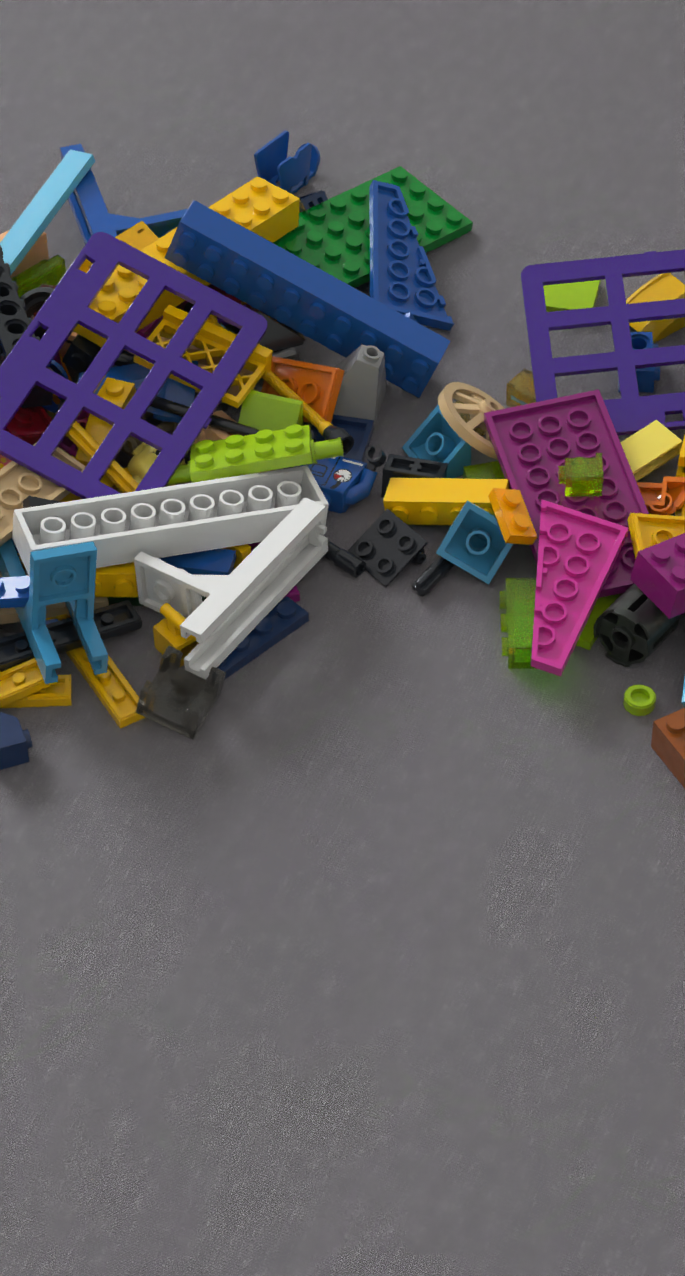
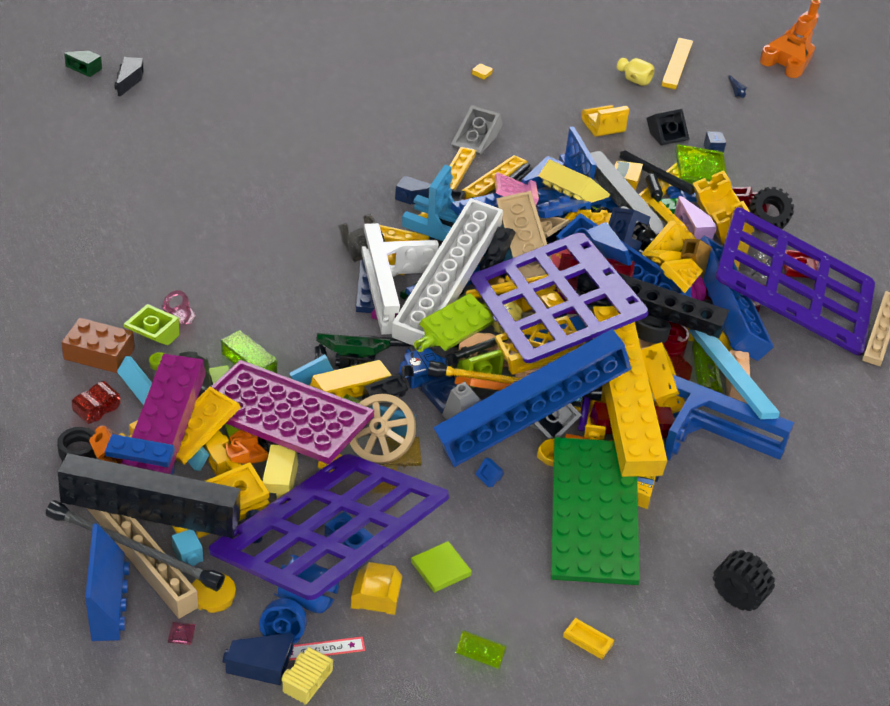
camera: 130 degrees right, 5 degrees down
(292, 172) = (686, 521): blue piece -> none
(312, 200) = (648, 508): dark blue tile -> none
(317, 95) = (743, 580): none -> black tyre
(389, 540) = (353, 344): none -> dark green wing
(398, 265) = (535, 492): blue wing -> none
(504, 168) = (588, 638): none -> yellow tile
(512, 516) = (298, 370): light orange plate -> none
(546, 745) = (183, 311): none -> clear pink piece
(572, 569) = (240, 366): dark pink wing -> none
(582, 476) = (282, 403): clear neon green brick -> none
(616, 203) = (481, 649): none -> clear neon green plate
(617, 723) = (154, 324): none -> lime slope

